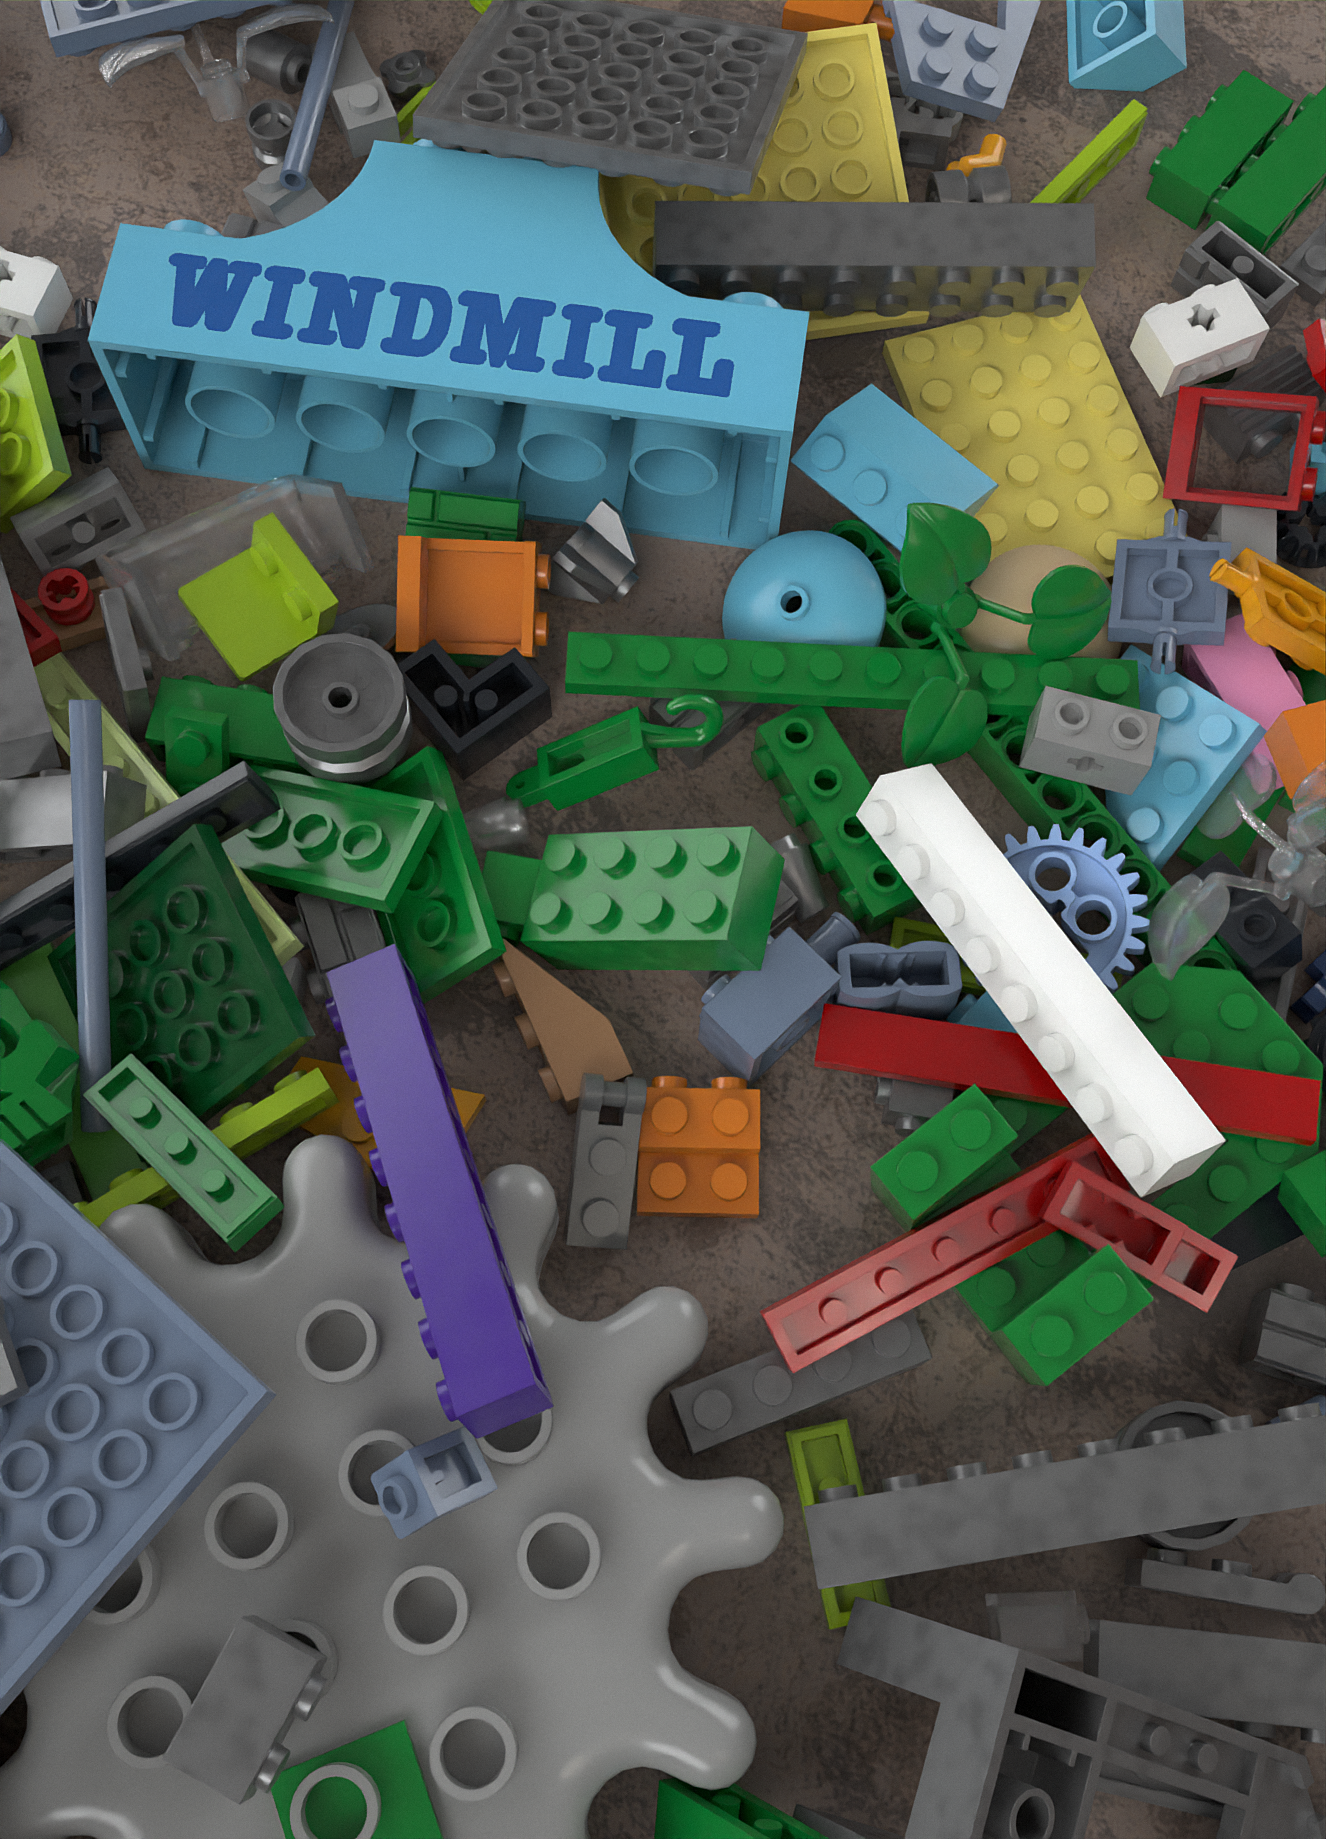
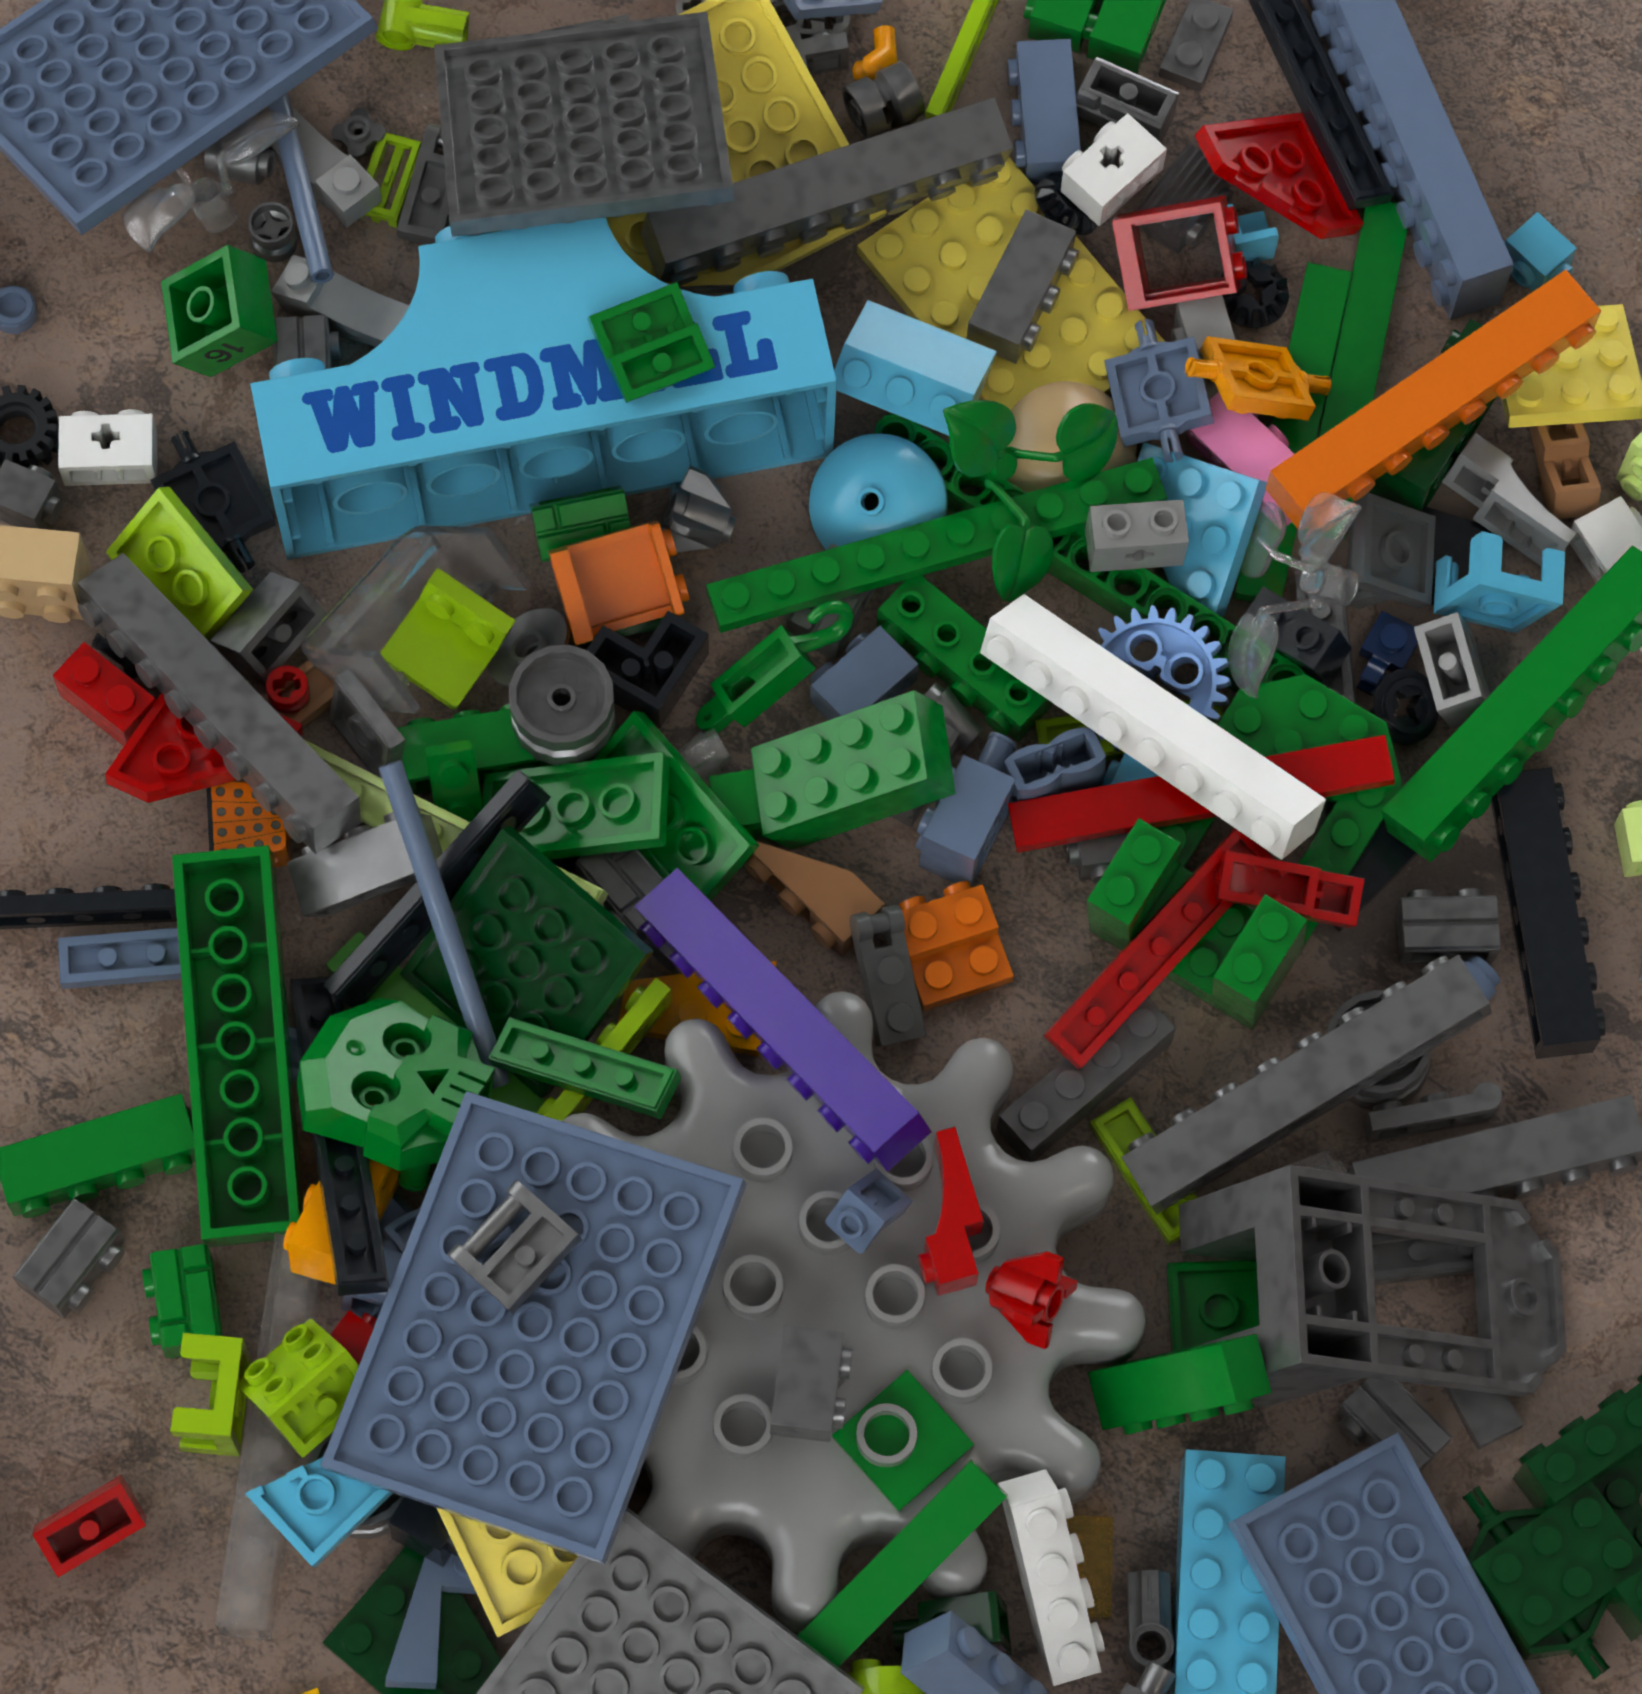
camera: 20 degrees left, 0 degrees up
(177, 175) = (219, 311): none -> green brick
(508, 1591) = (948, 1253): none -> red slope
(590, 317) = (651, 342): none -> green slope
(600, 1684) = (1030, 1294): none -> red brick
(721, 793) = (868, 674): none -> sand blue brick
(859, 1747) = (1210, 1300): none -> green tile
(1053, 430) = (1023, 286): none -> flat silver brick
(1124, 370) = (1060, 208): none -> black gear
(1142, 262) = (1043, 106): none -> sand blue brick

